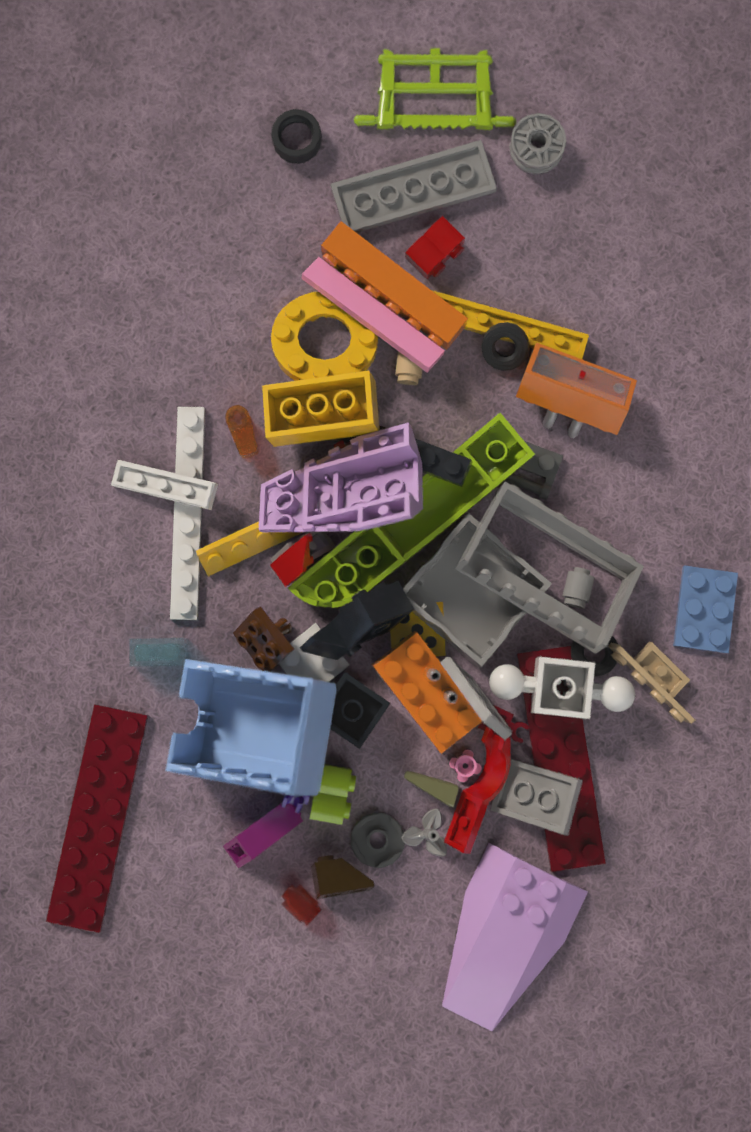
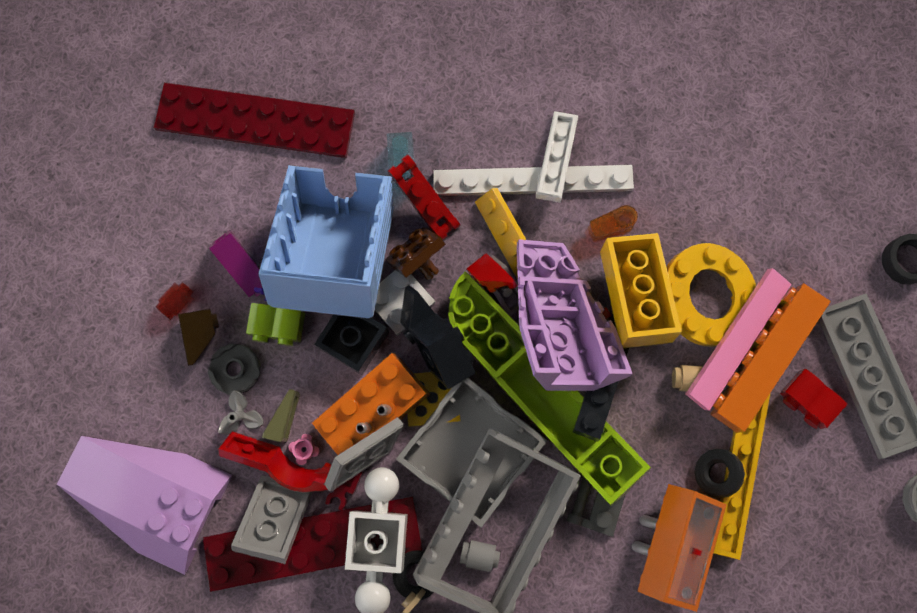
camera: 90 degrees right, 5 degrees down
(204, 629) = (423, 197): none -> red plate

